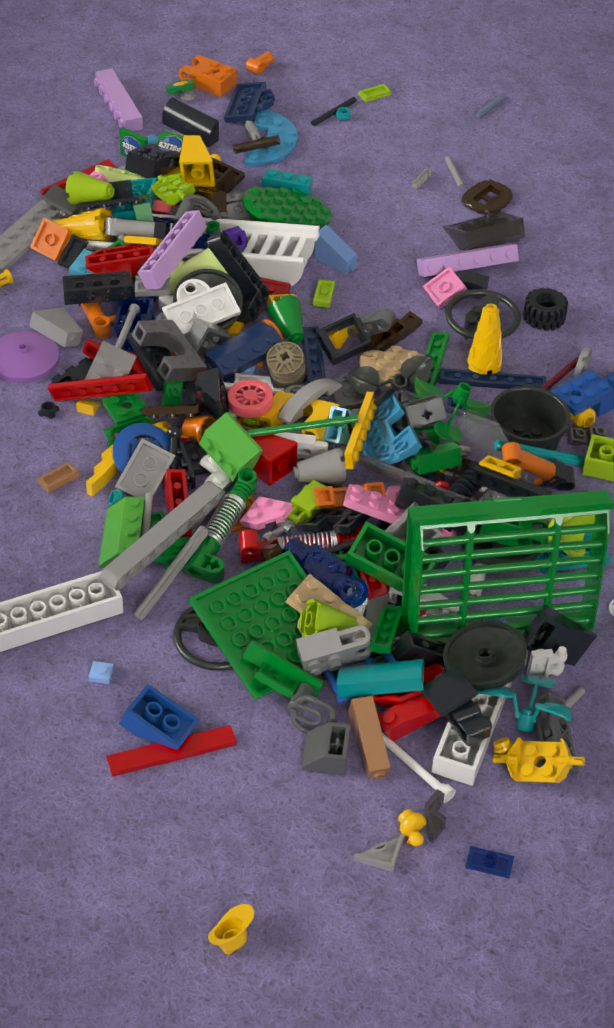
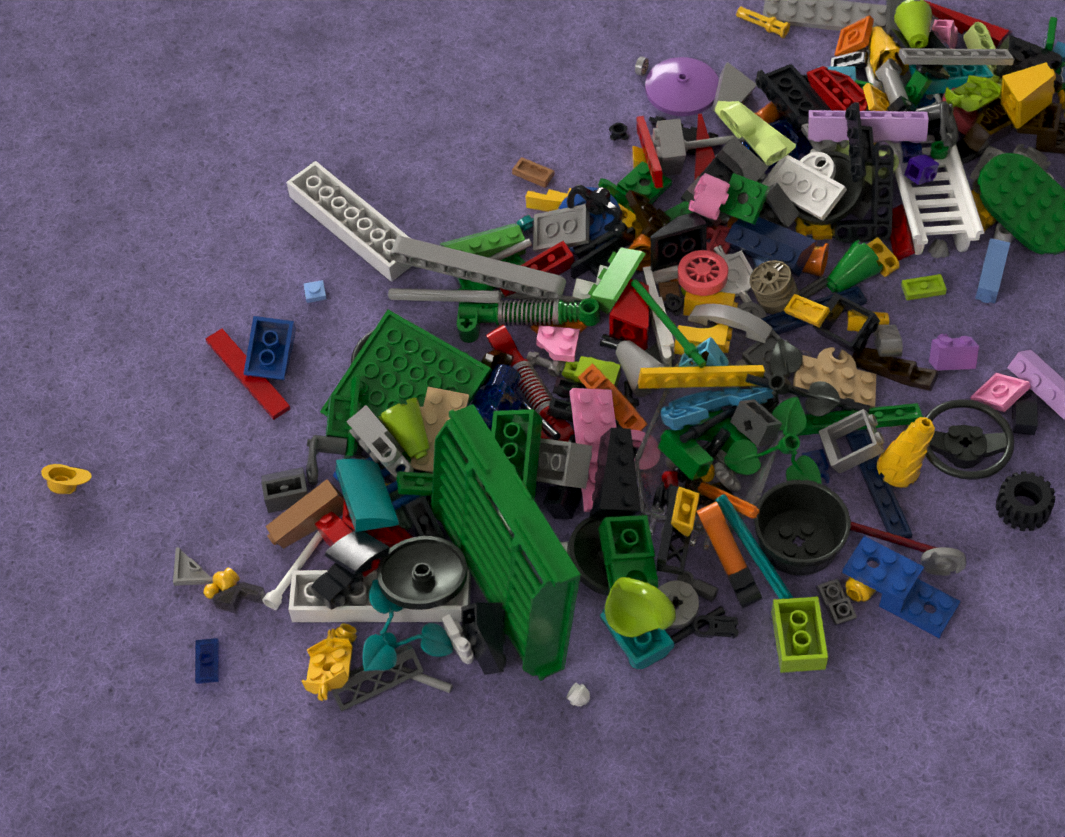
camera: 75 degrees right, 10 degrees up
(125, 315) = (759, 135): none -> yellowish green panel
(139, 179) = (955, 56): none -> light grey tile
(148, 430) = (597, 203): none -> black piece
(194, 255) = (860, 142): none -> black bracket
(194, 354) = (708, 196): none -> bright pink brick
(206, 338) = (745, 199): none -> green piece
(283, 480) = (610, 342): none -> black pin
(321, 354) = (807, 310): none -> yellow plate
(399, 296) = (953, 353): none -> medium lavender brick
(452, 354) = (845, 426): none -> light grey window
(474, 459) = (740, 505): none -> orange axle

